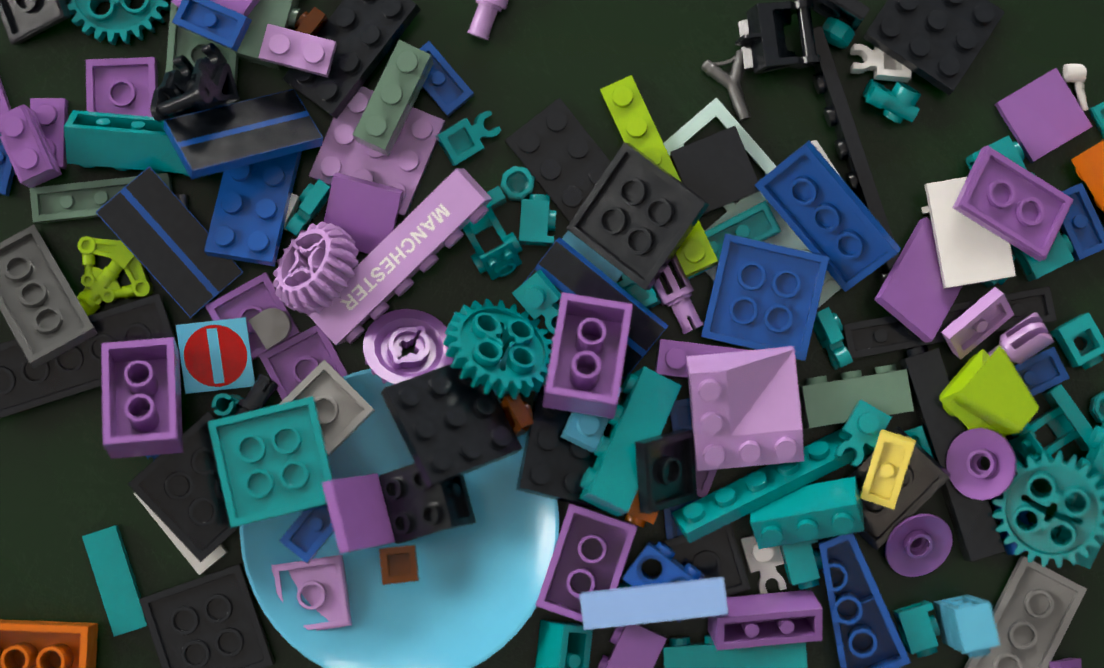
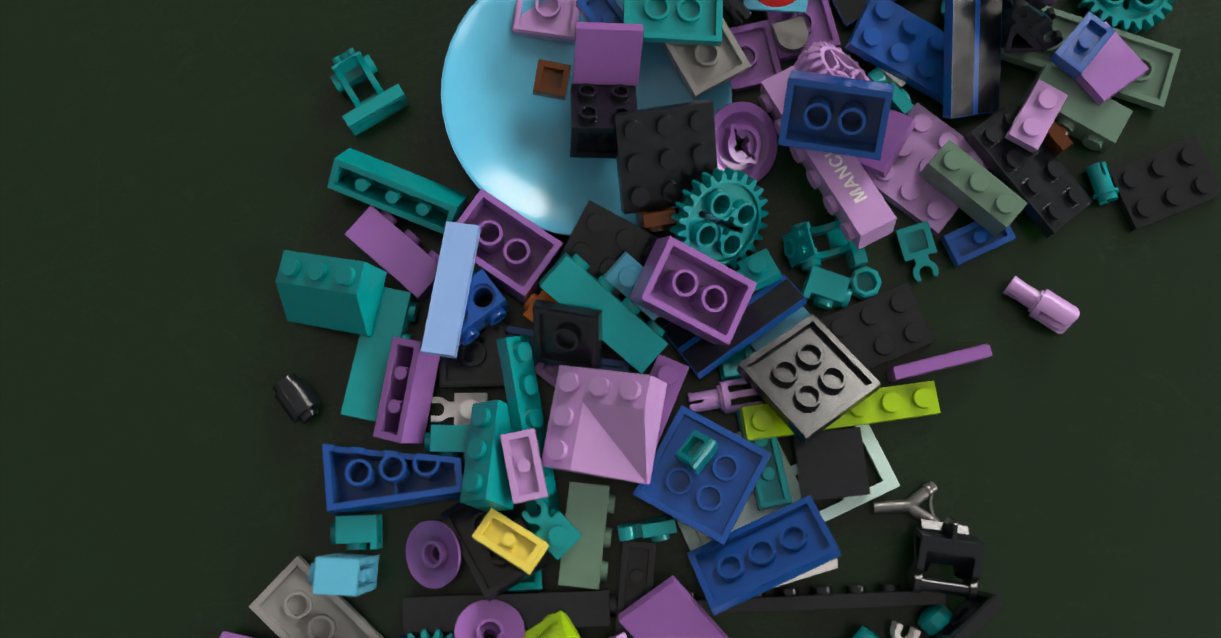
camera: 100 degrees right, 5 degrees down
(366, 258) = (835, 114): none -> blue brick
(581, 88) = (938, 363): none -> medium lavender tile
(745, 308) = (697, 451): none -> teal slope
(810, 476) = (524, 466): none -> lavender plate

